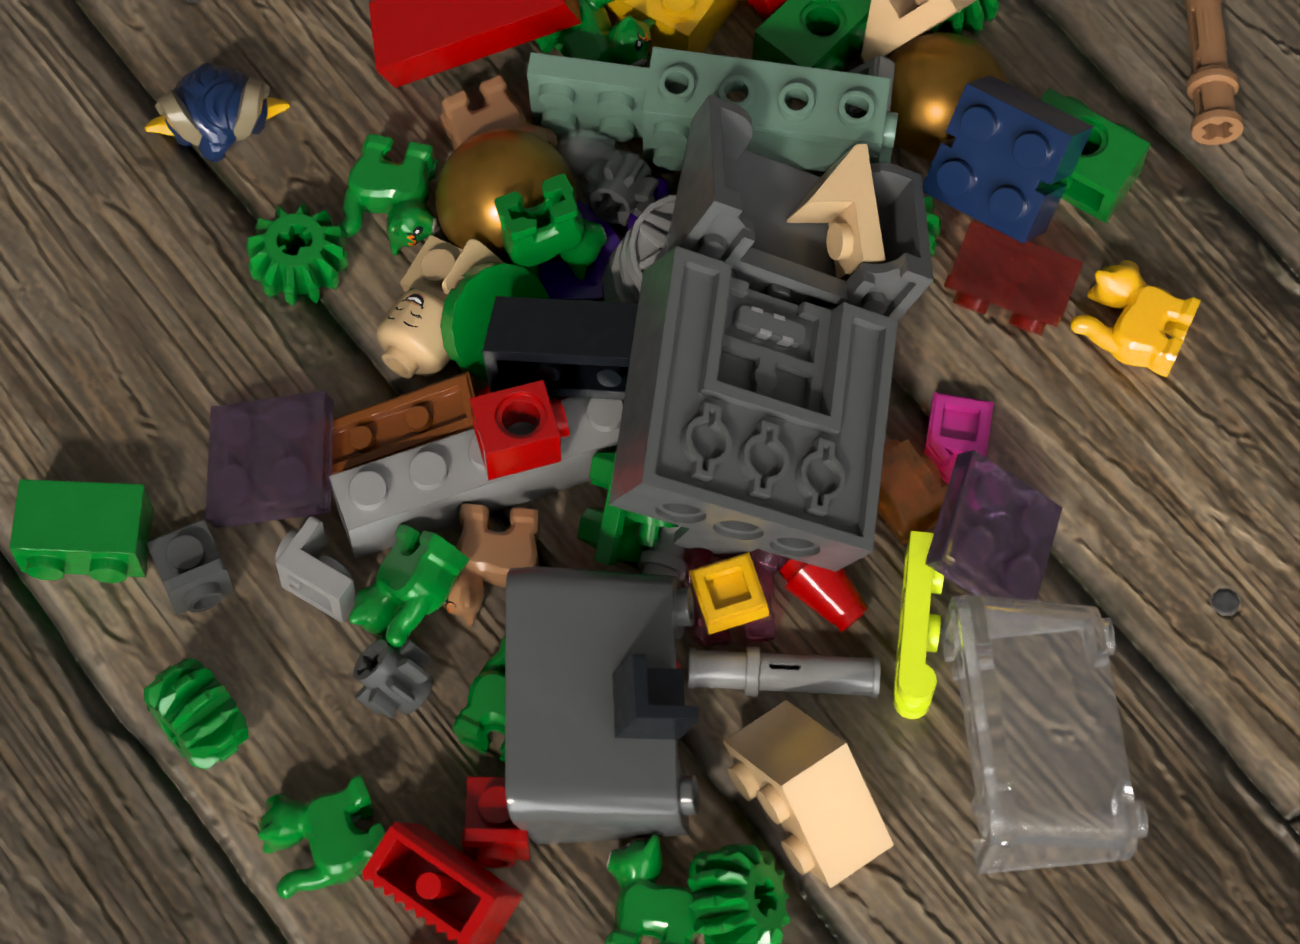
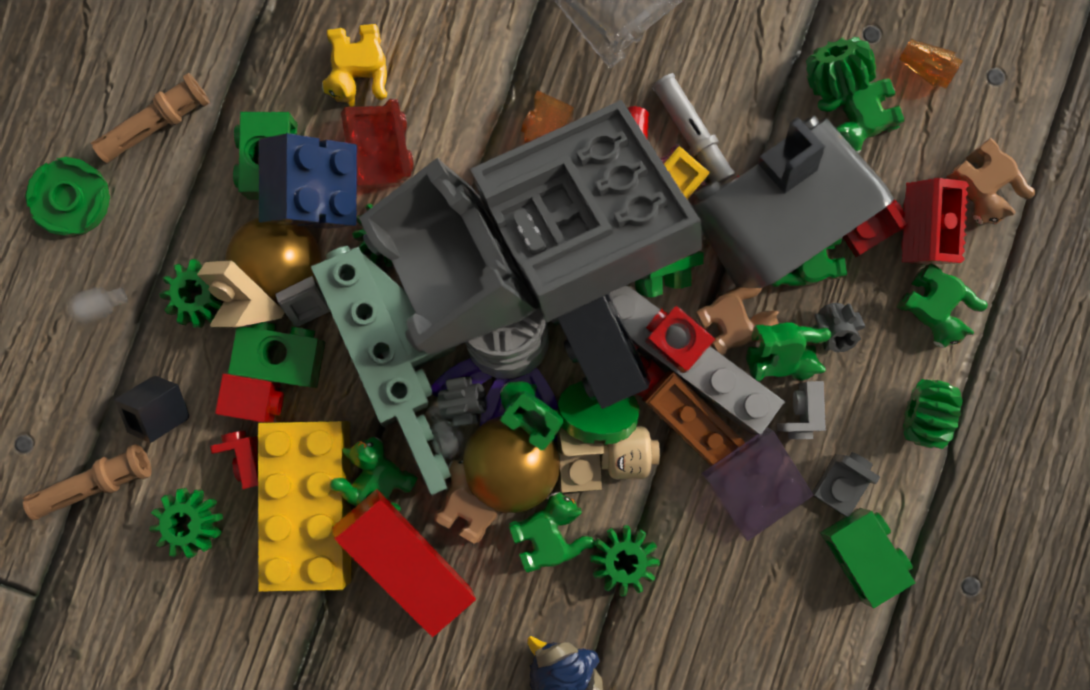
camera: 125 degrees left, 20 degrees up
(812, 789) = (762, 65): tan brick -> none
(849, 206) = (410, 246): tan slope -> none
(917, 630) = (623, 75): neon yellow plate -> none
(956, 427) = (494, 121): dark pink tile -> none
(993, 531) = (547, 61): clear purple plate -> none

